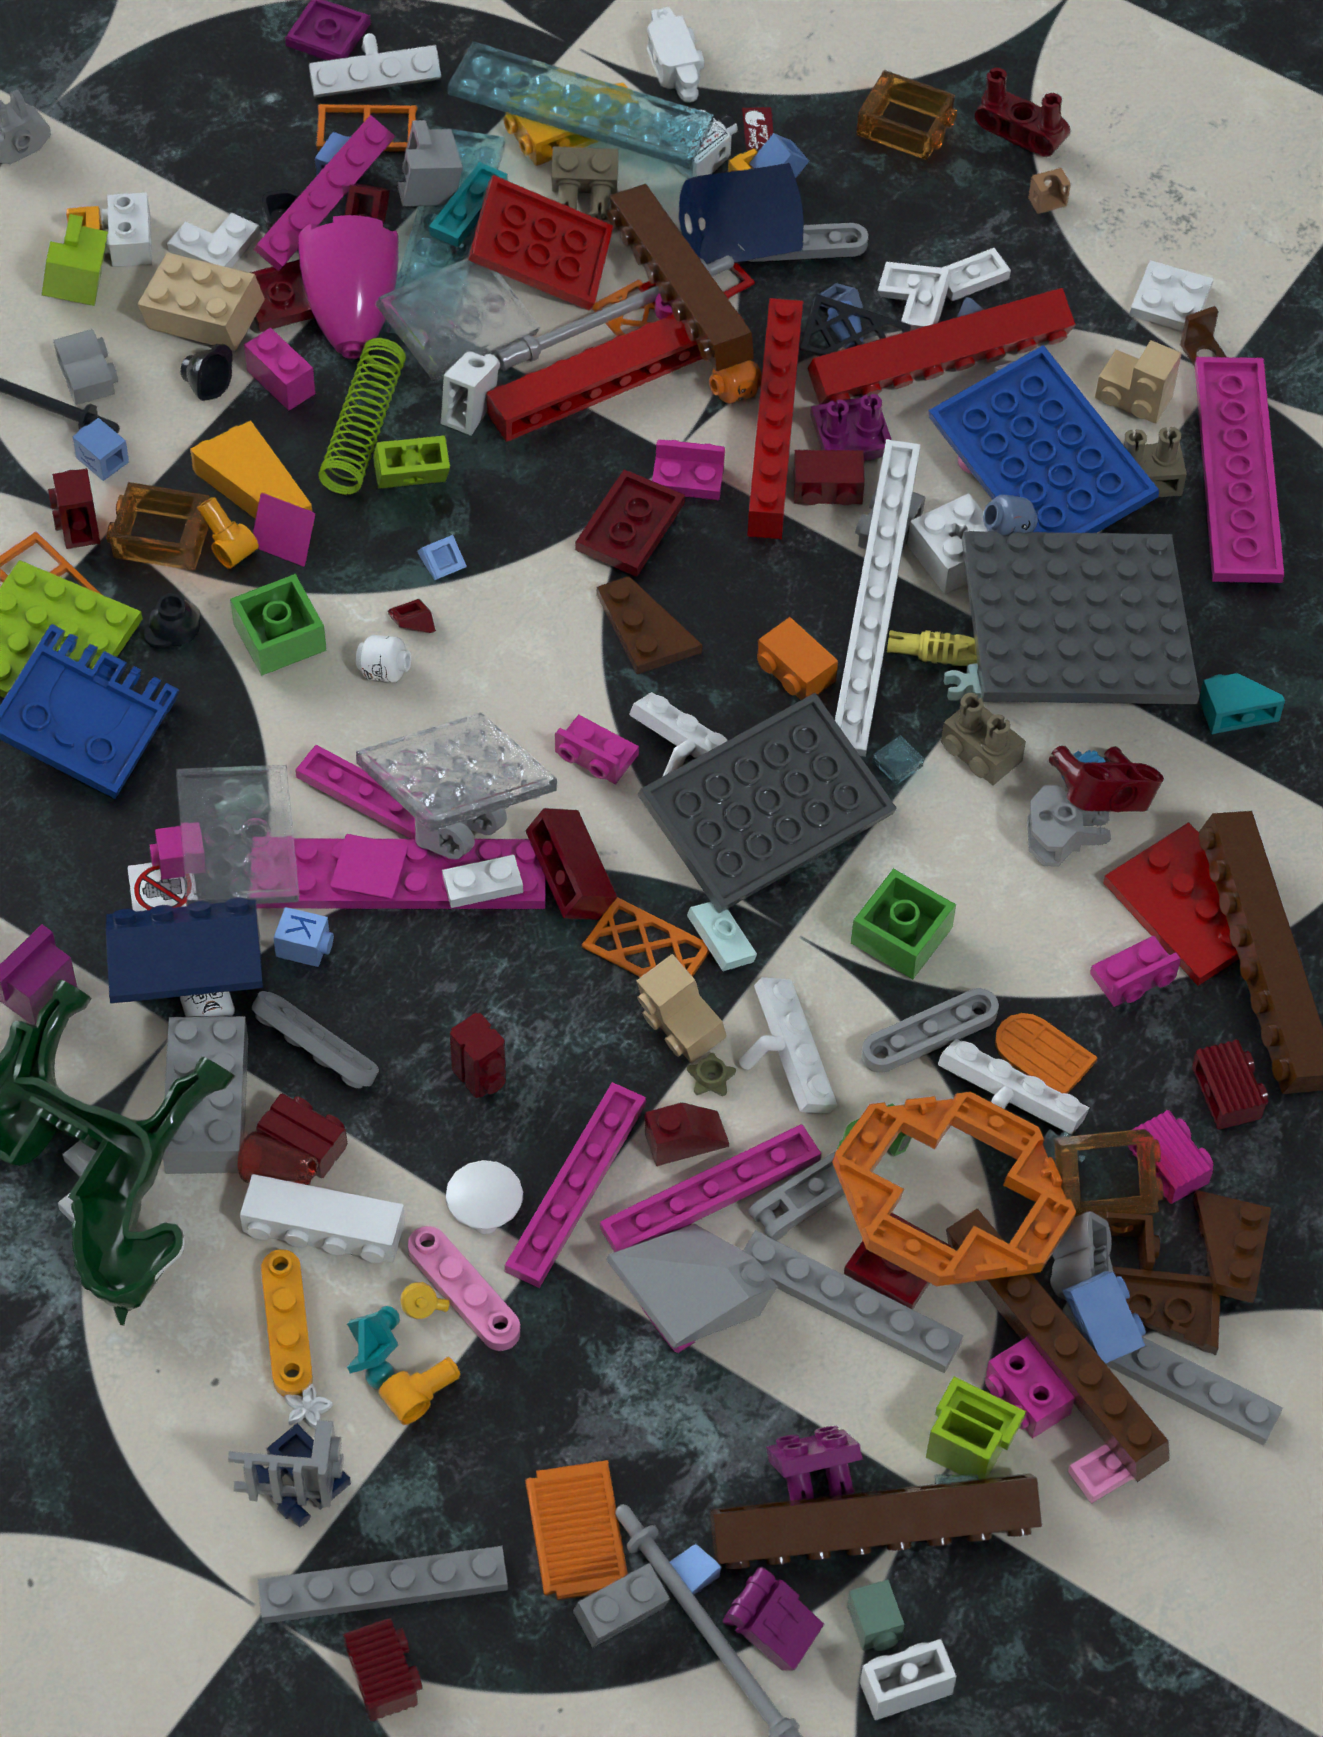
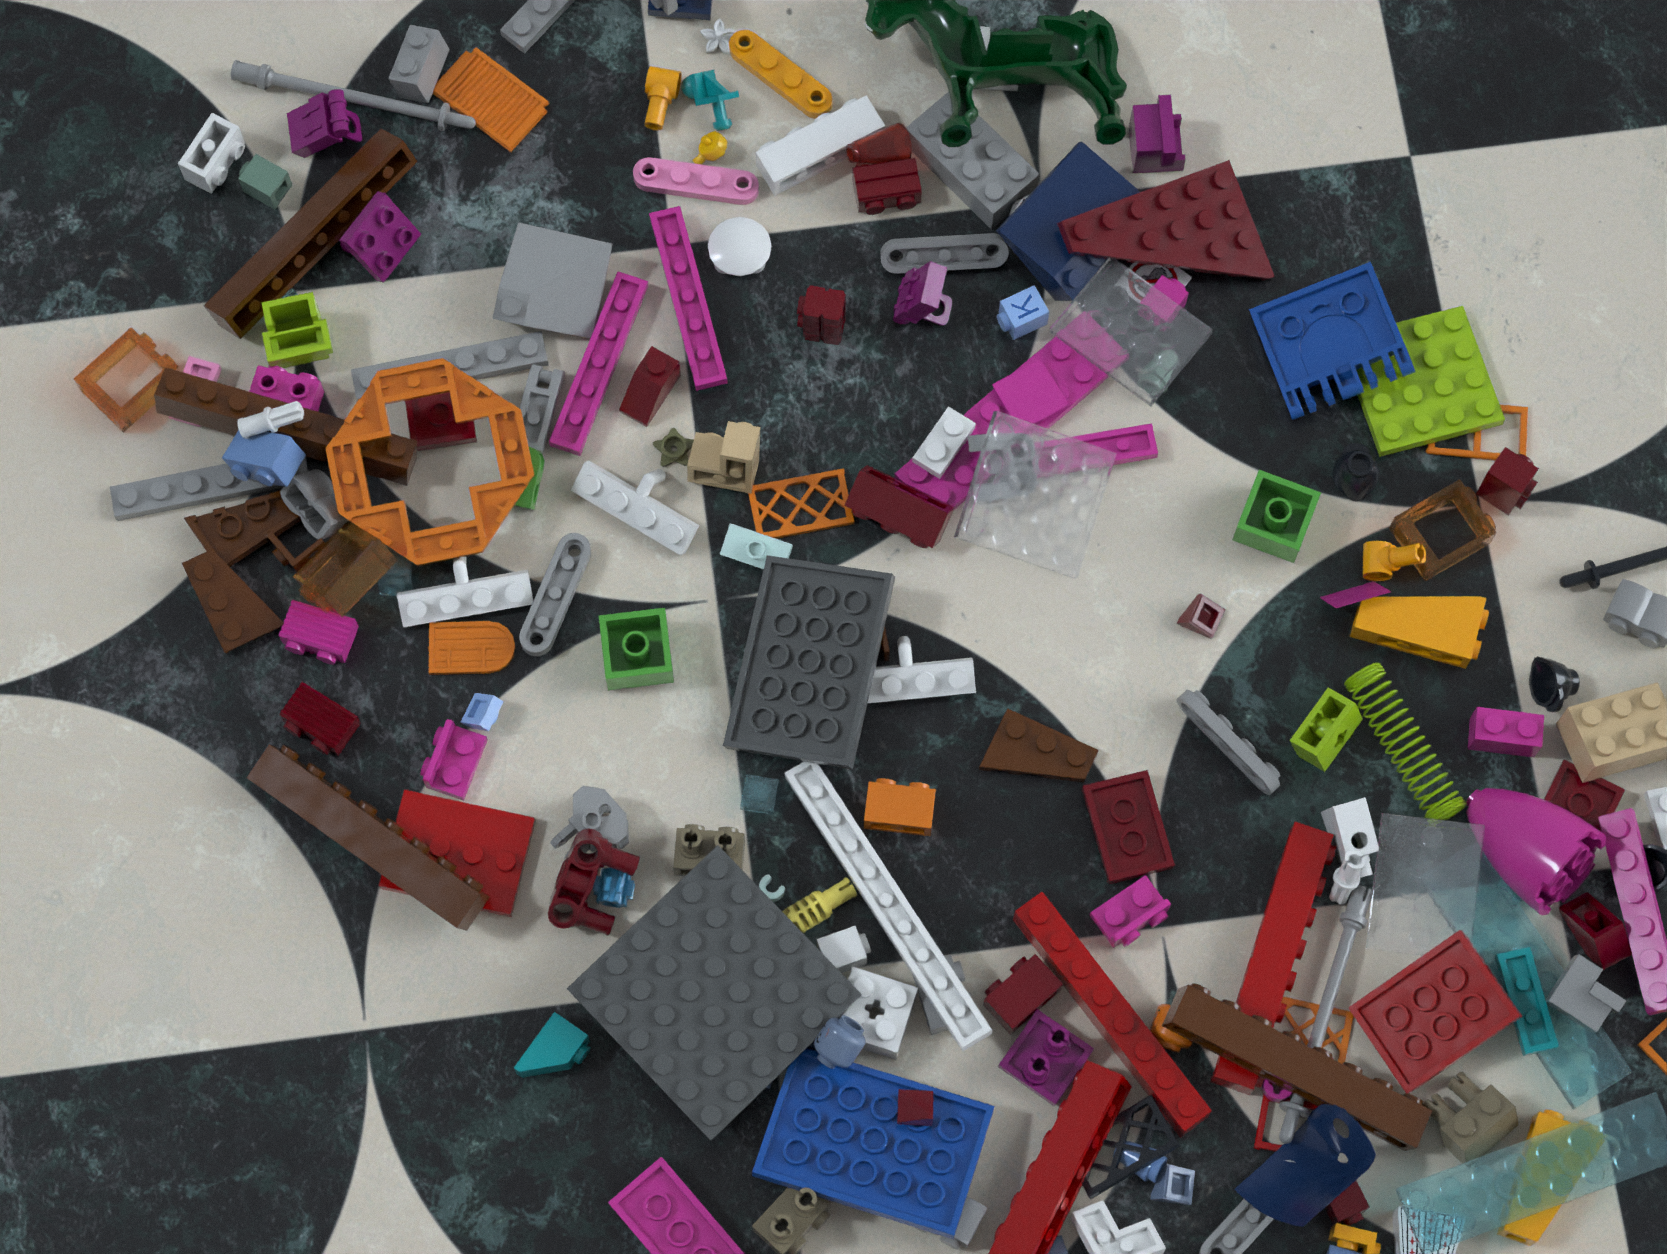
camera: 140 degrees right, 15 degrees up
(100, 449) = (1554, 555): medium blue brick -> none
(100, 876) = (1181, 224): none -> dark red wing
(378, 1006) = (921, 295): none -> magenta piece
(383, 658) = (1183, 559): white head -> none
(442, 557) = (1231, 682): light blue slope -> none
(490, 505) = (1220, 732): none -> light grey plate
(508, 358) = (1347, 877): none -> white axle
(595, 749) = (973, 618): dark pink bracket -> none
(696, 1568) = (402, 126): light blue slope -> none
(940, 601) = (845, 948): none -> white brick
(991, 442) = (915, 1107): none -> dark red slope
(1075, 1323) = (270, 419): none -> white axle
(1079, 984) = (482, 712): none -> light blue plate
(1209, 1555) = (141, 402): none -> clear orange window

